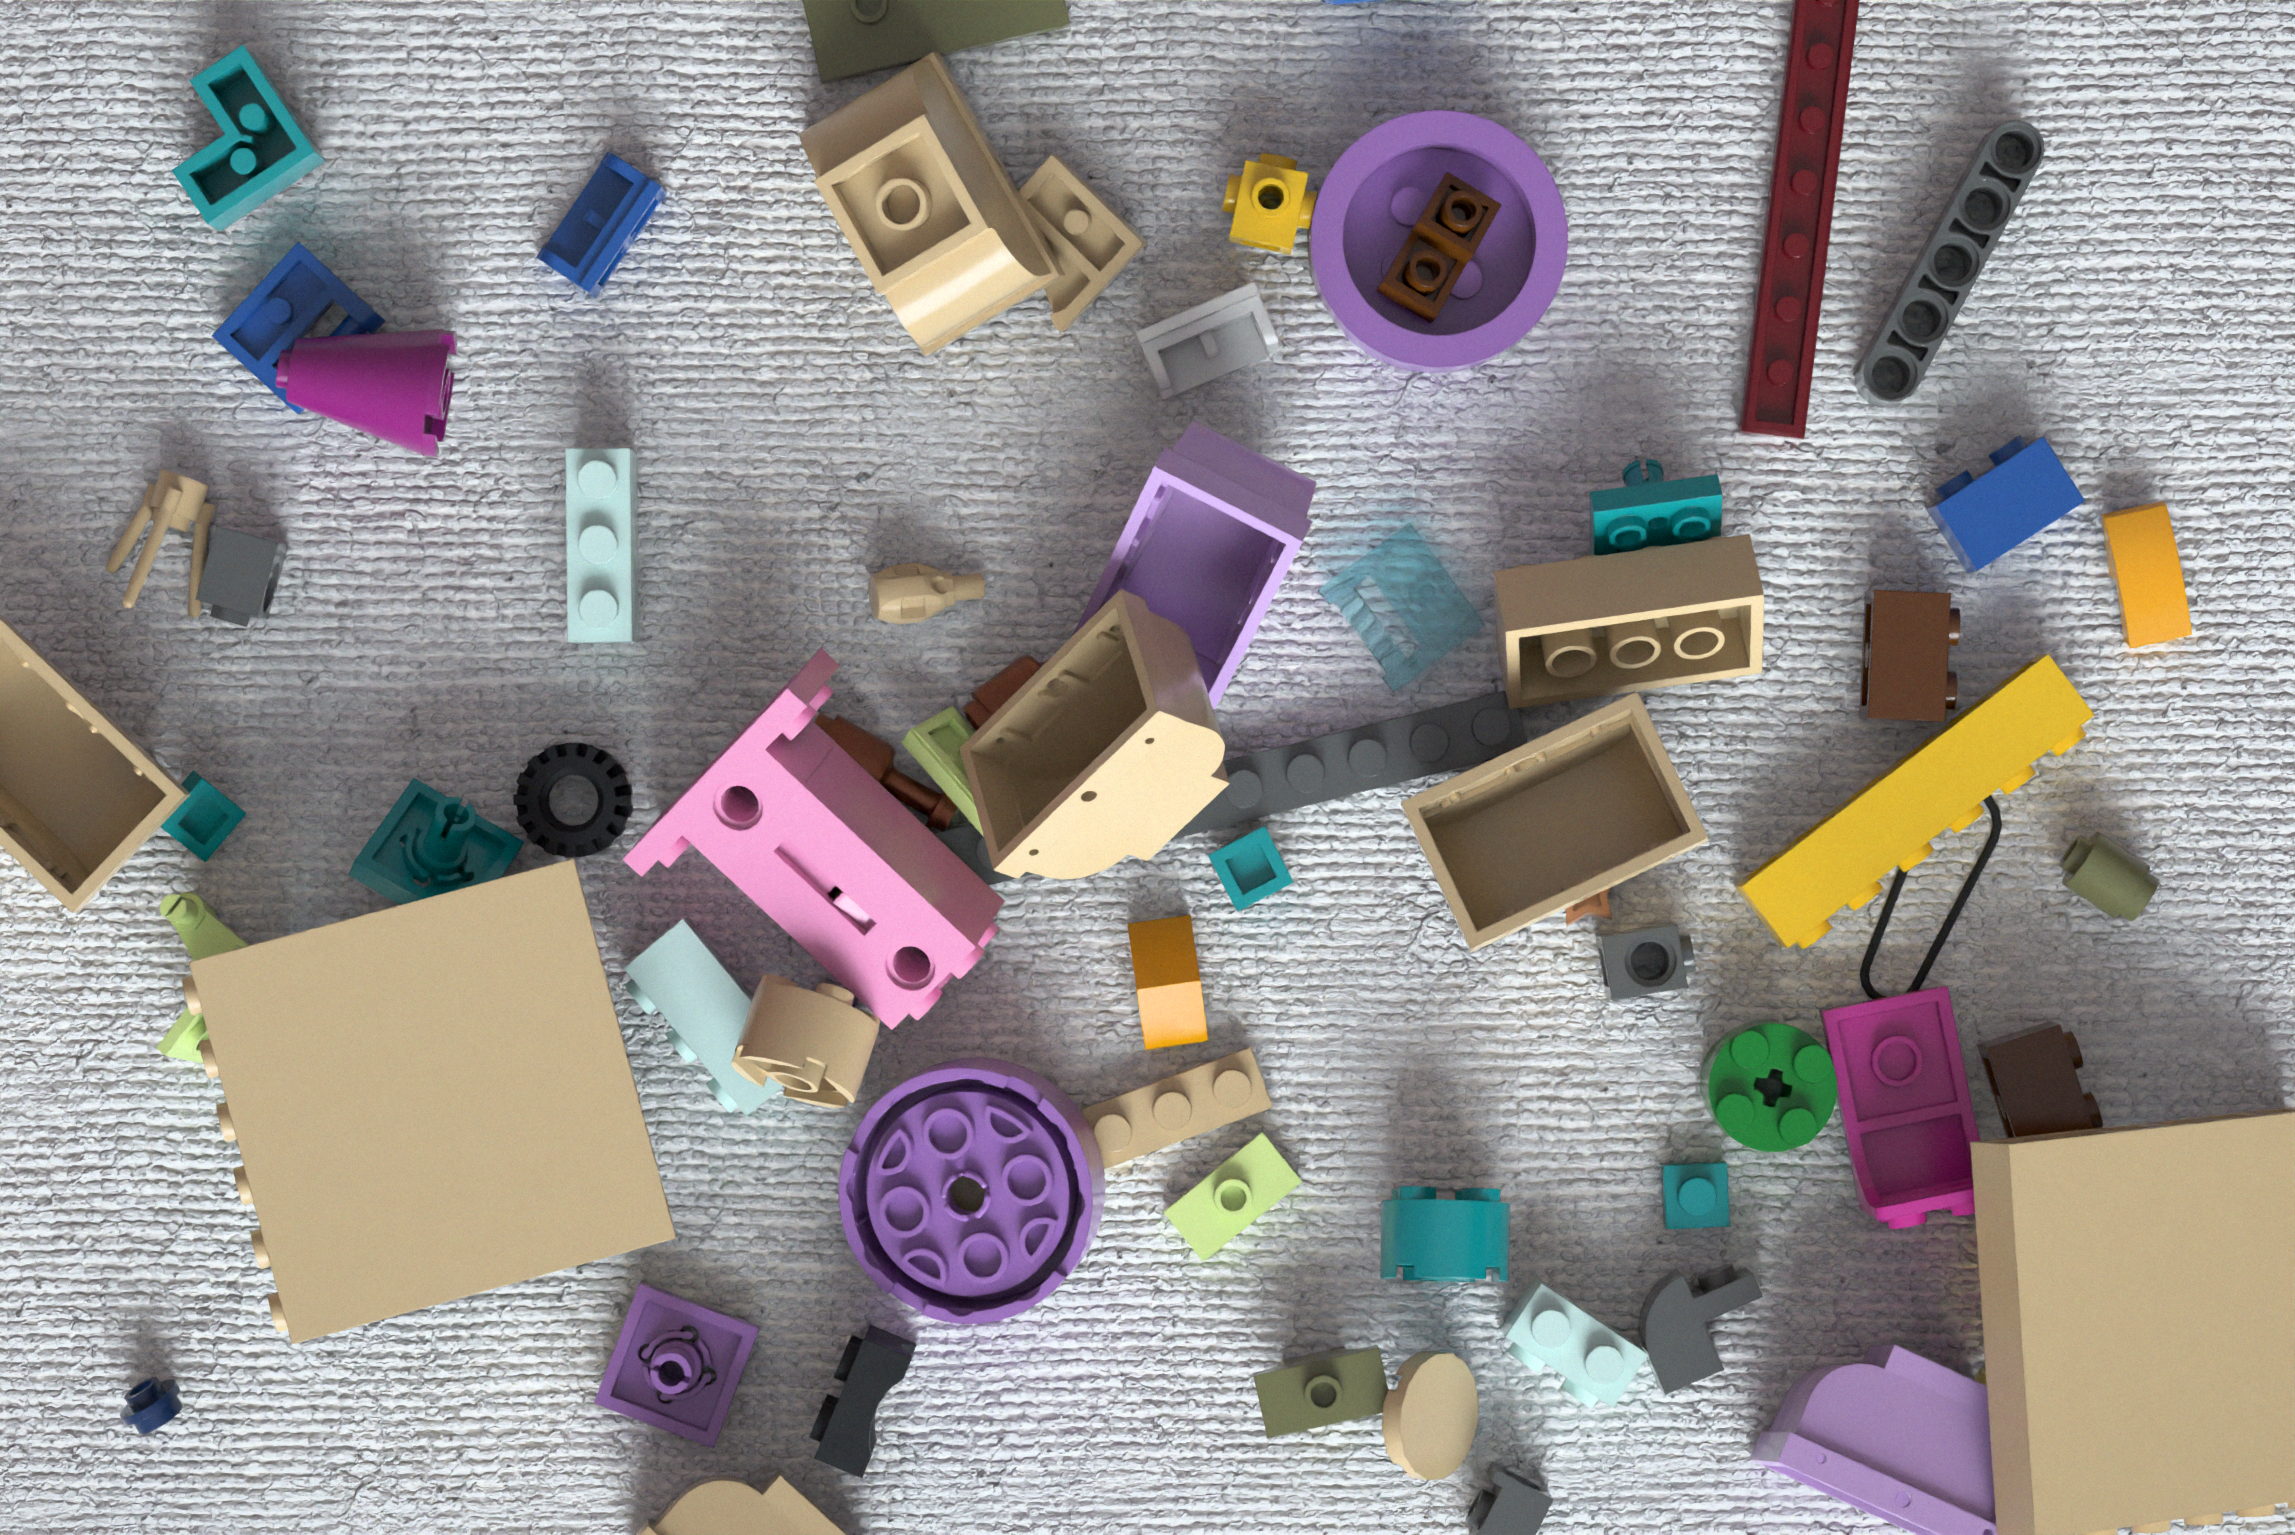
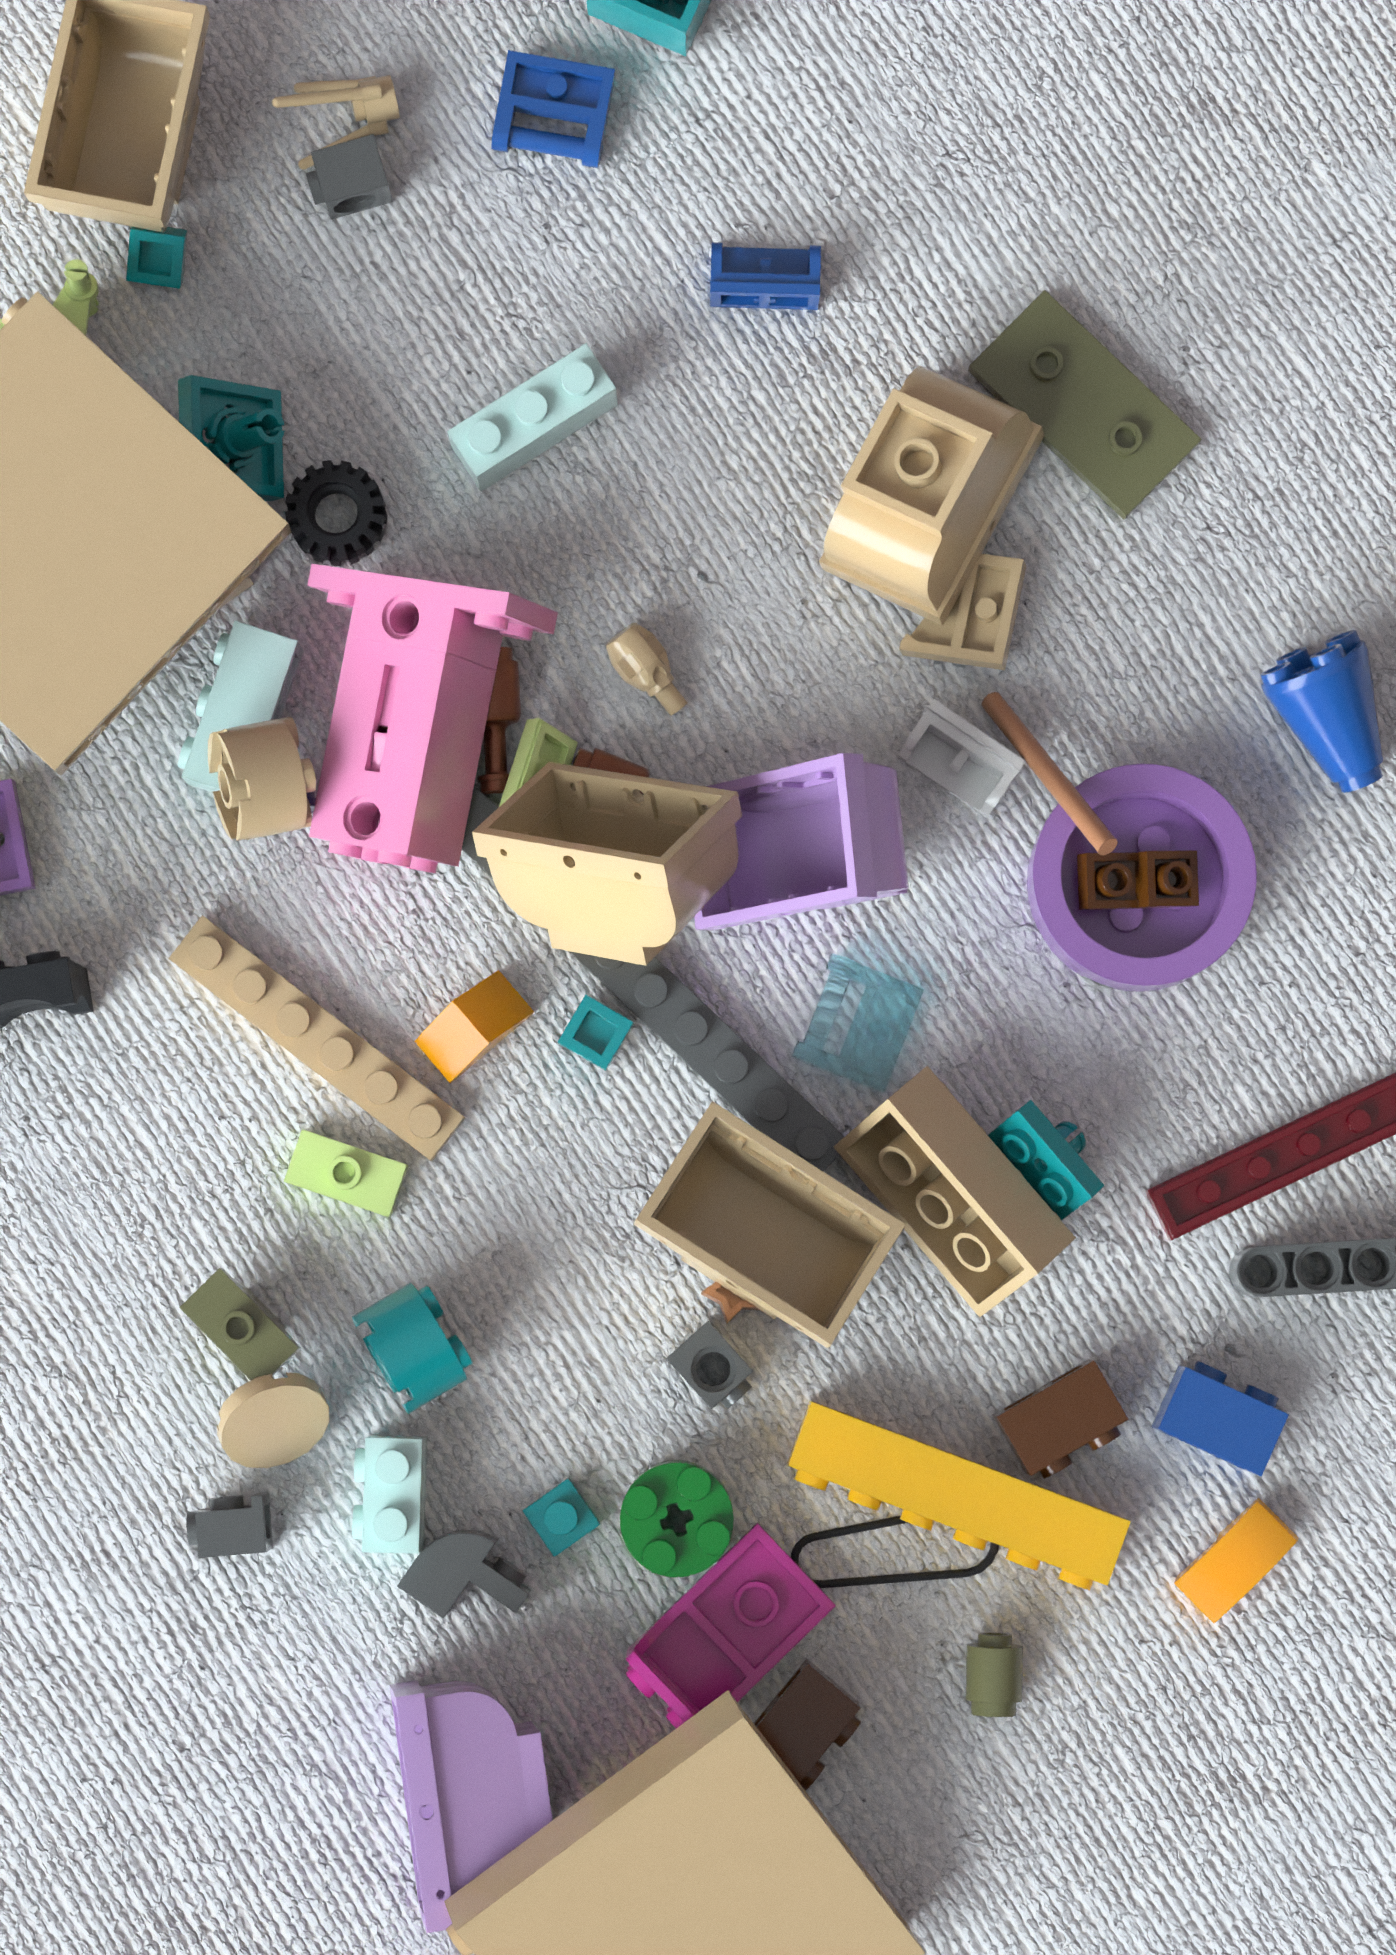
camera: 55 degrees right, 5 degrees down
(376, 383) = (548, 184): magenta cone -> none
(1018, 1143) = (284, 987): medium lavender brick -> none
(1263, 227) = (1072, 749): yellow brick -> none
(1281, 267) = (1049, 773): none -> nougat bar

